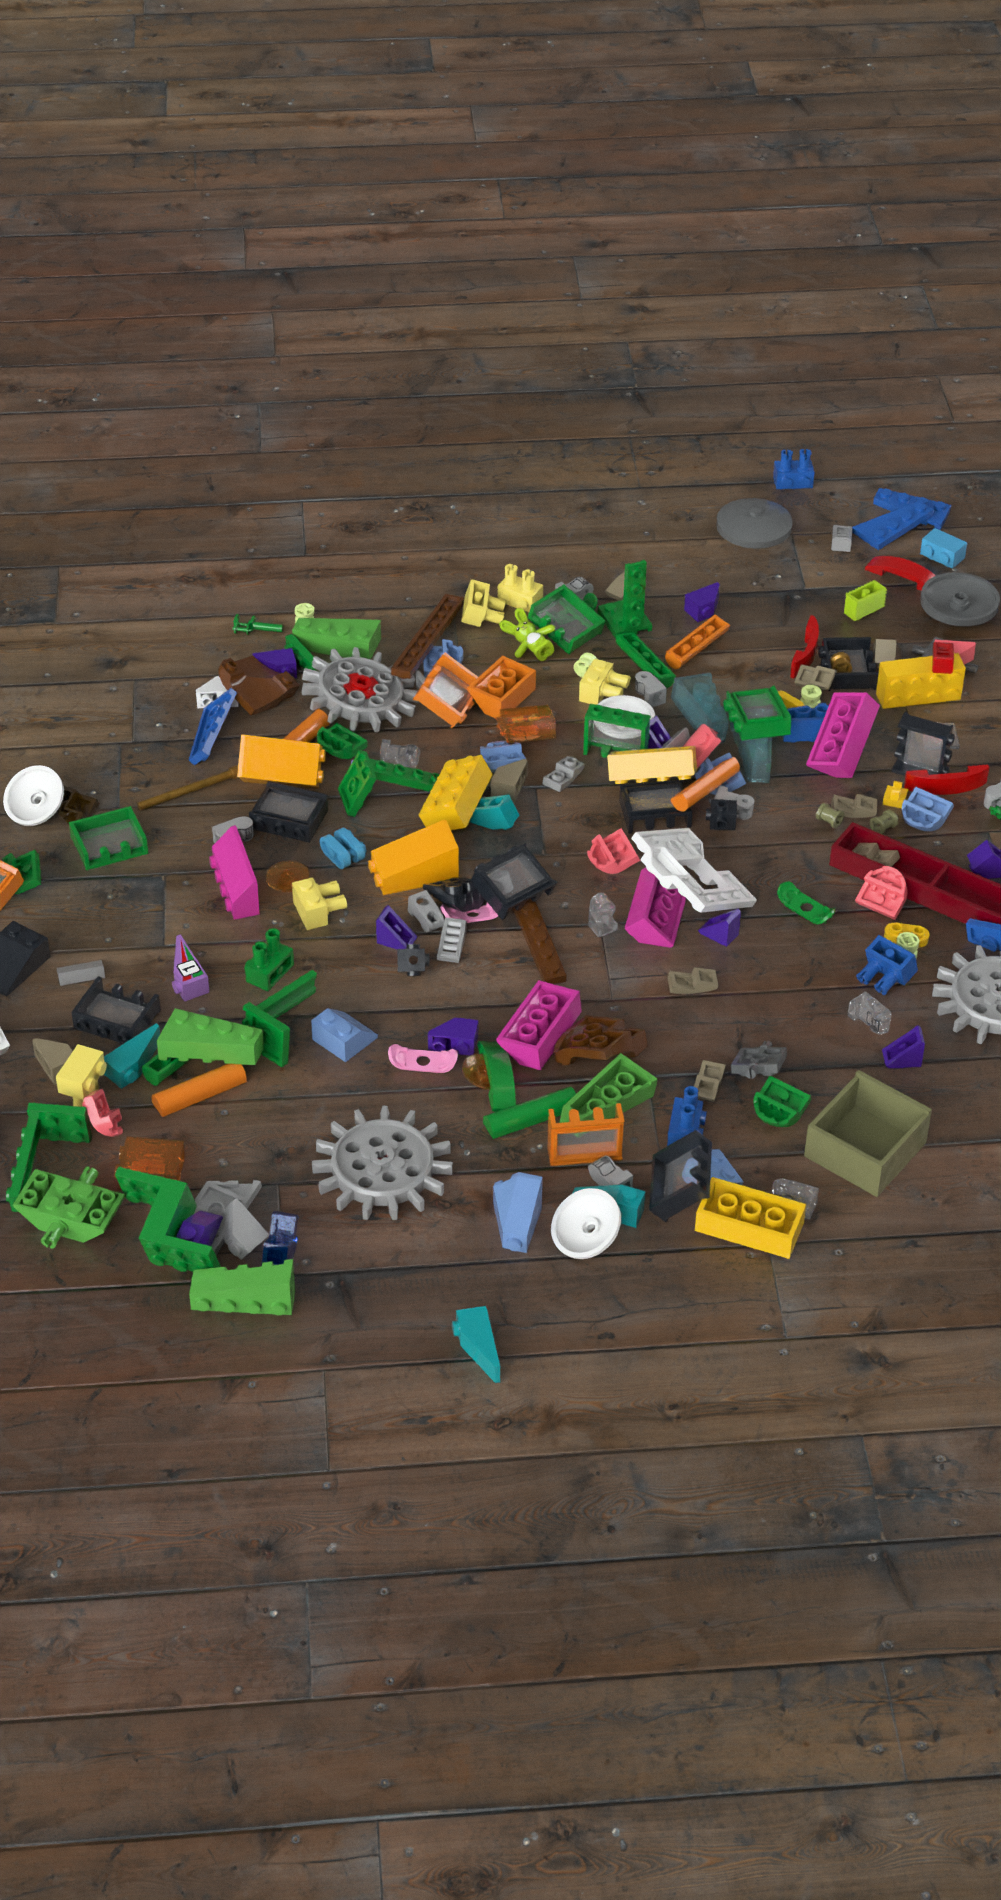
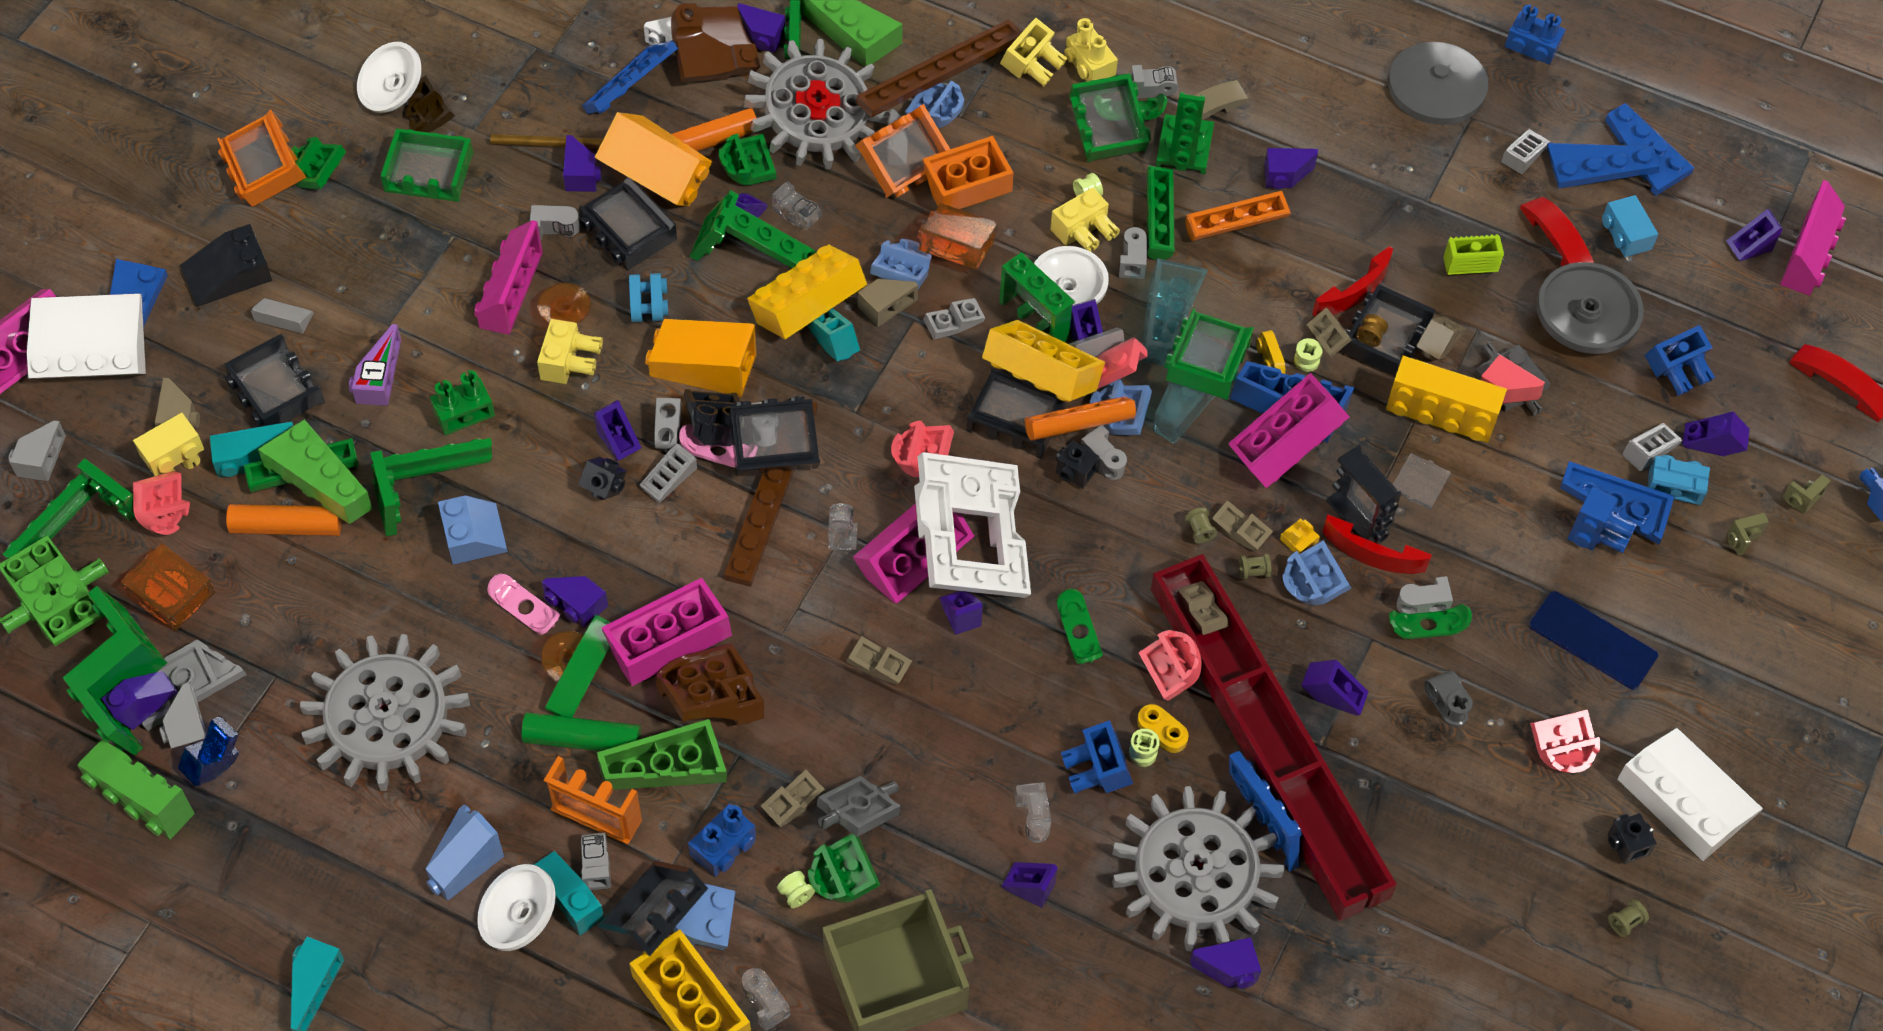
camera: 30 degrees right, 15 degrees up
(222, 793) = (580, 167): none -> dark purple slope
(528, 636) = (1056, 119): lime animal -> none
(759, 1127) = (795, 889): none -> yellowish green wheel
(943, 657) = (1478, 388): red slope -> none

